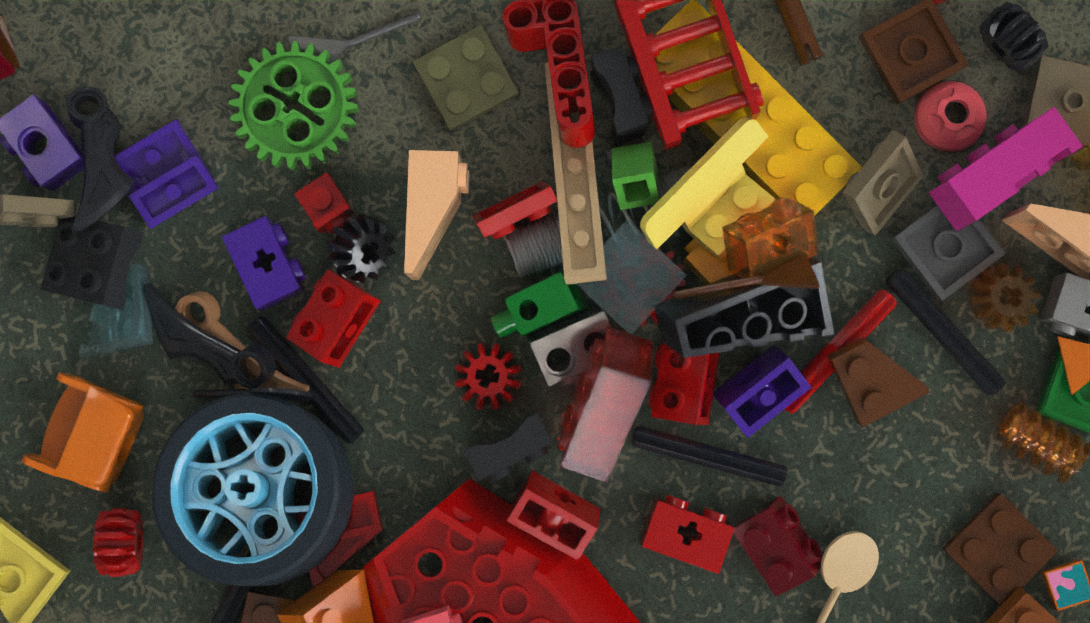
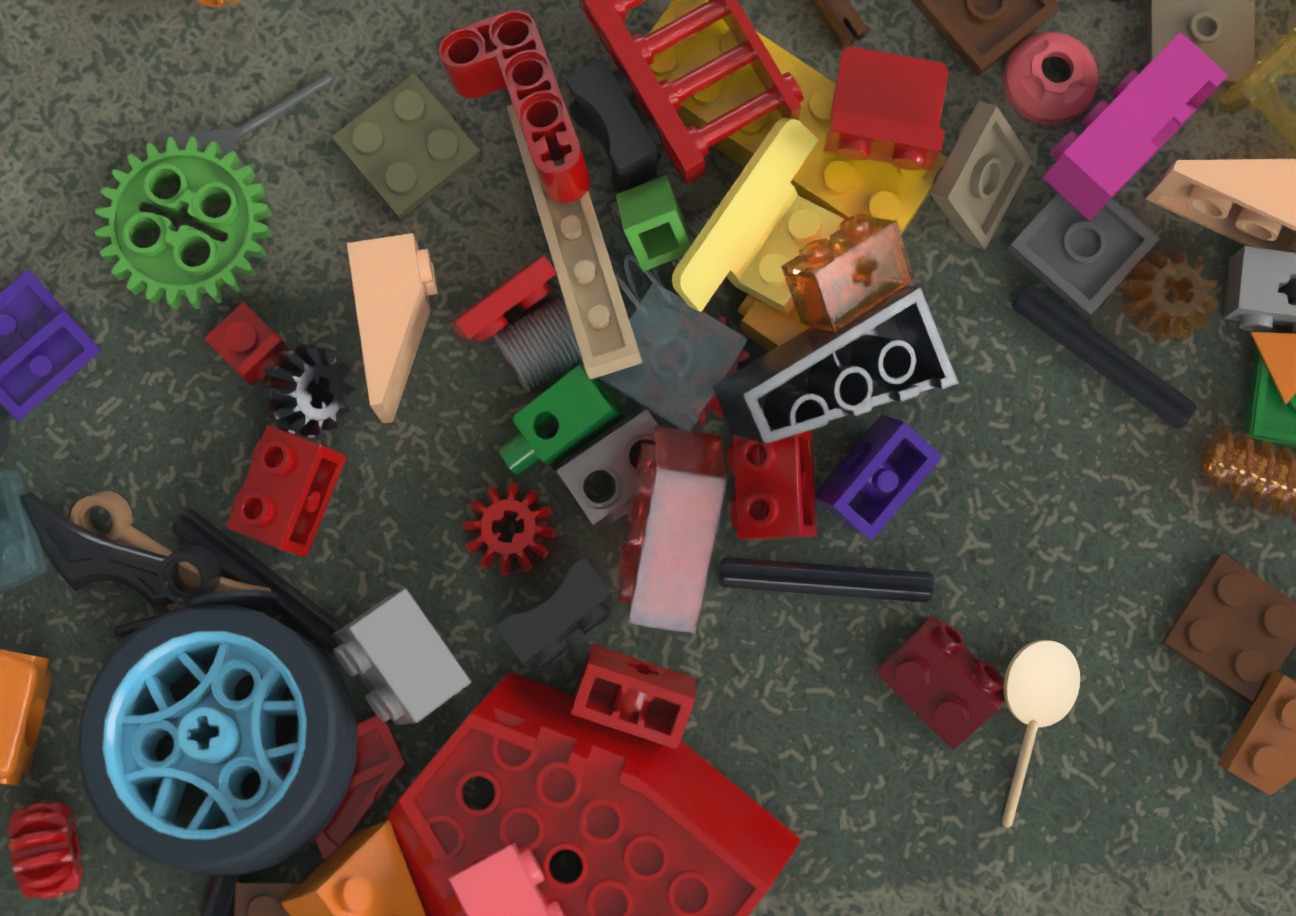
camera: 15 degrees left, 5 degrees down
(246, 250) = (154, 420): dark purple brick -> none
(392, 458) = (399, 660): none -> light grey piece
(703, 551) = (844, 707): red brick -> none
(791, 274) = (888, 307): reddish brown piece -> none
(824, 123) = (887, 109): none -> red bracket
(859, 326) = (974, 399): red axle -> none
(873, 381) = (1022, 437): reddish brown wing -> none

